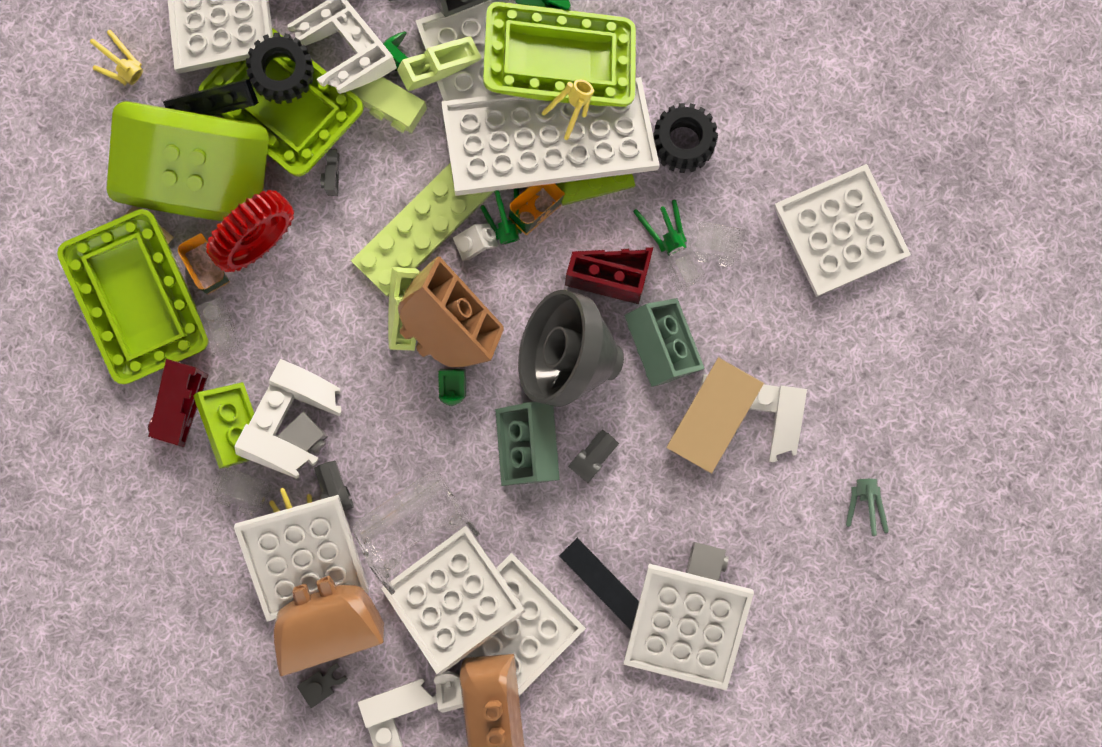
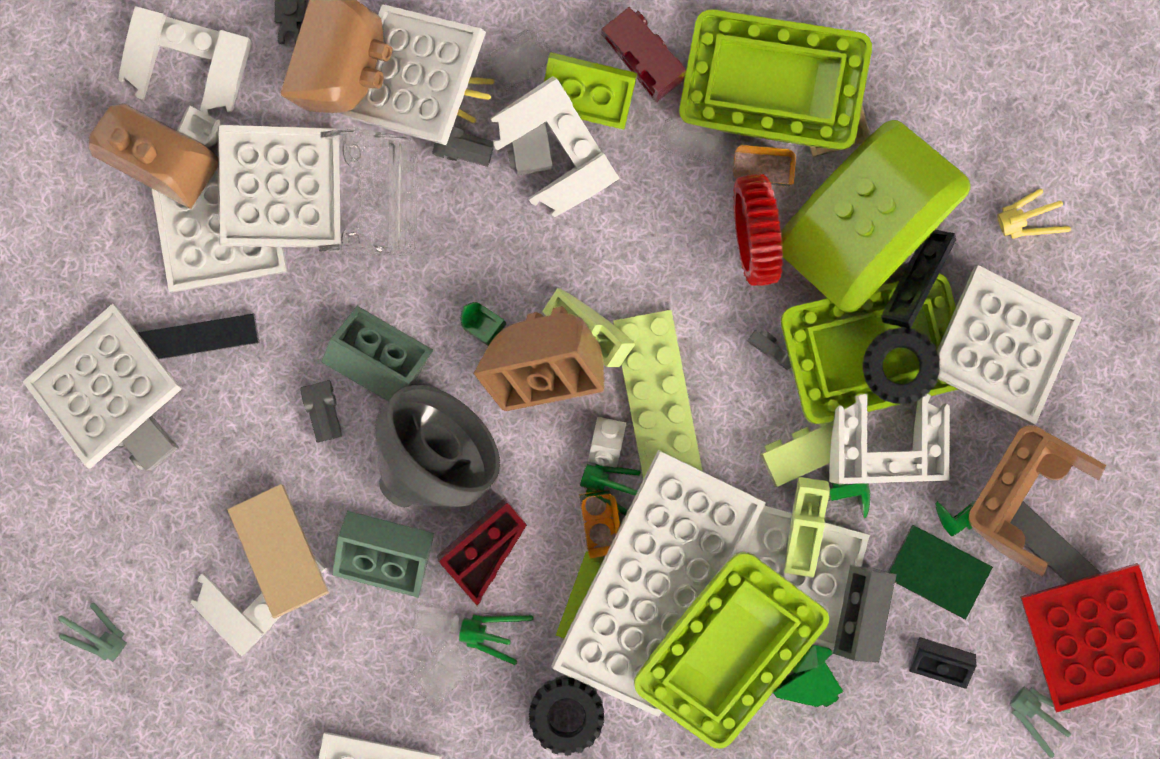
camera: 125 degrees right, 5 degrees up
(579, 95) = (668, 634): light yellow plant -> none

